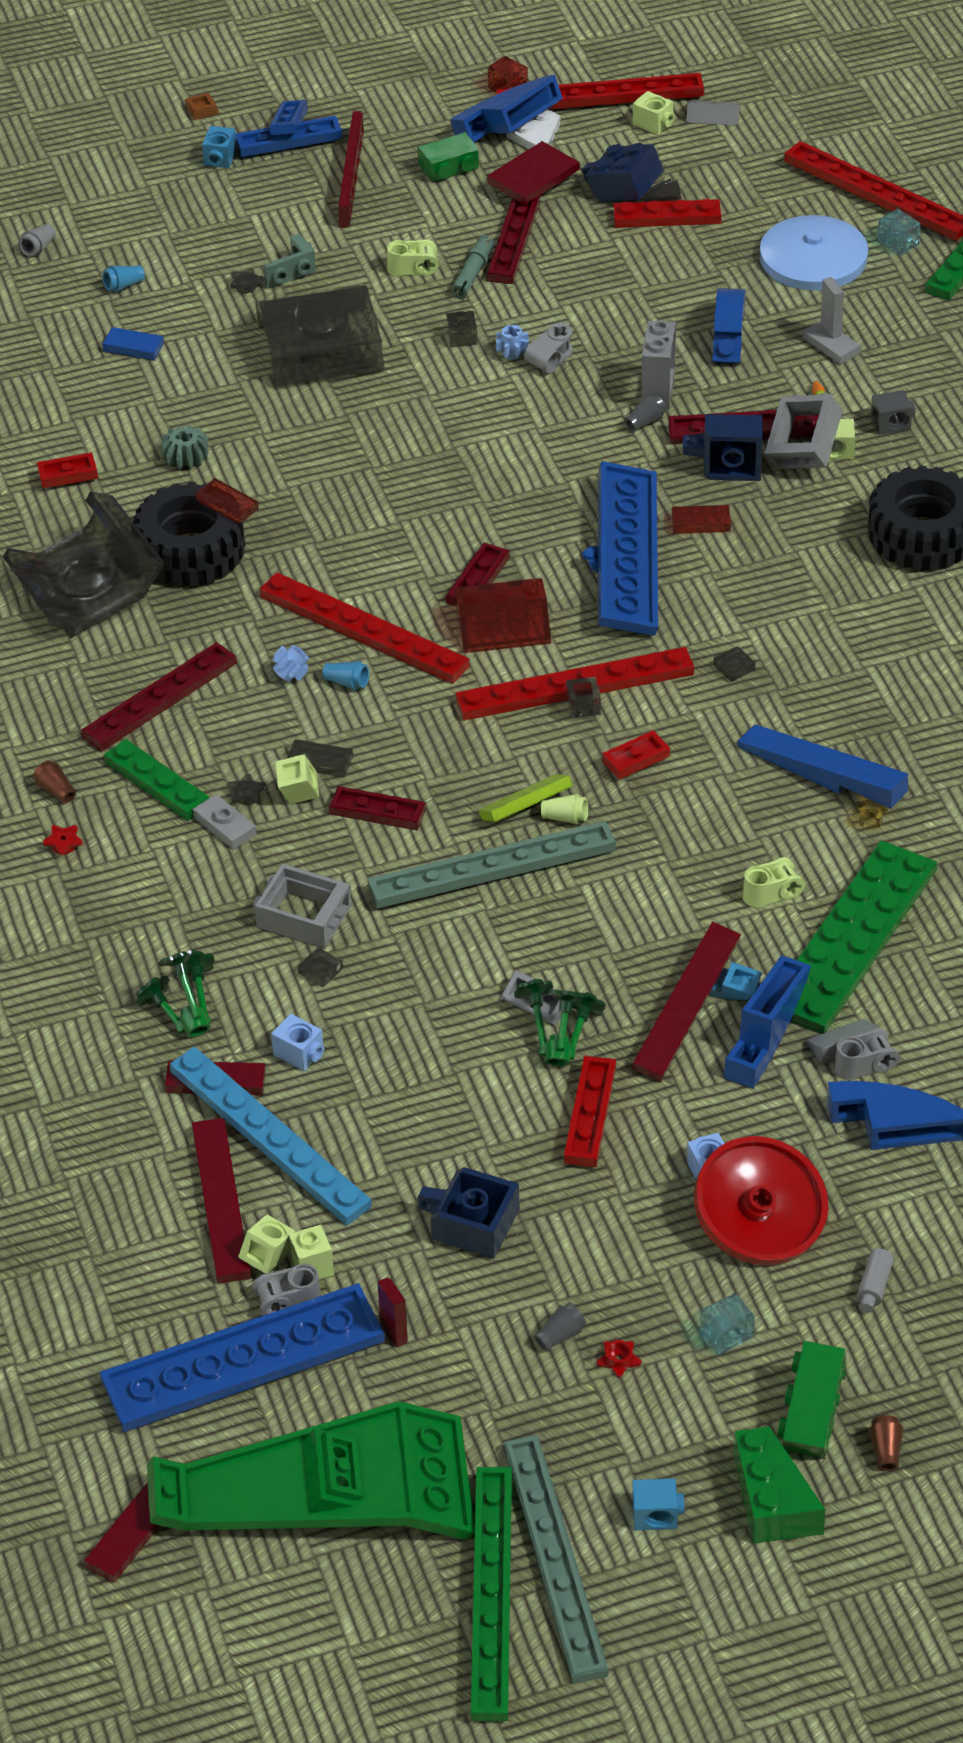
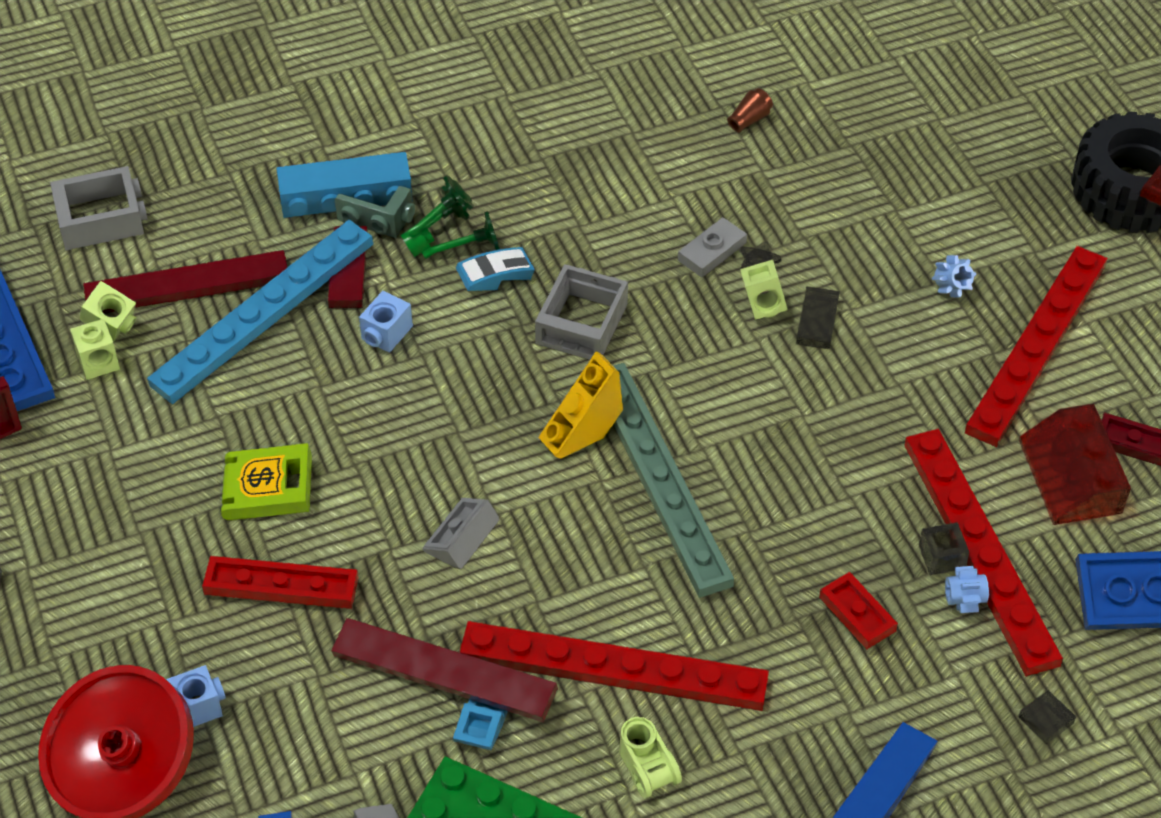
camera: 85 degrees right, 5 degrees up
(63, 846) = (672, 126): red plate -> none
(90, 571) = (1055, 92): clear smoke panel -> none
(104, 1298) = (101, 226): none -> light grey window
(112, 1076) = (314, 186): none -> dark azure brick
(155, 778) = (770, 188): green plate -> none
(158, 696) = (897, 183): dark red tile -> none
(162, 1044) = (380, 219): none -> sand green bracket
(236, 968) = (489, 268): none -> slope
(287, 1287) = (55, 339): light grey piece -> none
(320, 967) = (502, 338): clear smoke tile -> none
(348, 674) = (950, 330): dark azure cone -> none
(377, 808) = (746, 373): dark red tile -> none
(427, 897) = (586, 410): none -> yellow slope
(472, 1211) = (130, 476): dark blue hinge -> none
(478, 1128) = (258, 482): none -> lime container
(525, 797) = (770, 502): lime tile -> none
(558, 1049) = (406, 528): plant -> none
(565, 809) = (755, 544): yellowish green cone -> none
(623, 688) = (966, 589): none -> light blue gear
(678, 906) = (617, 665): none -> red plate
(765, 1021) = (400, 746): blue slope -> none

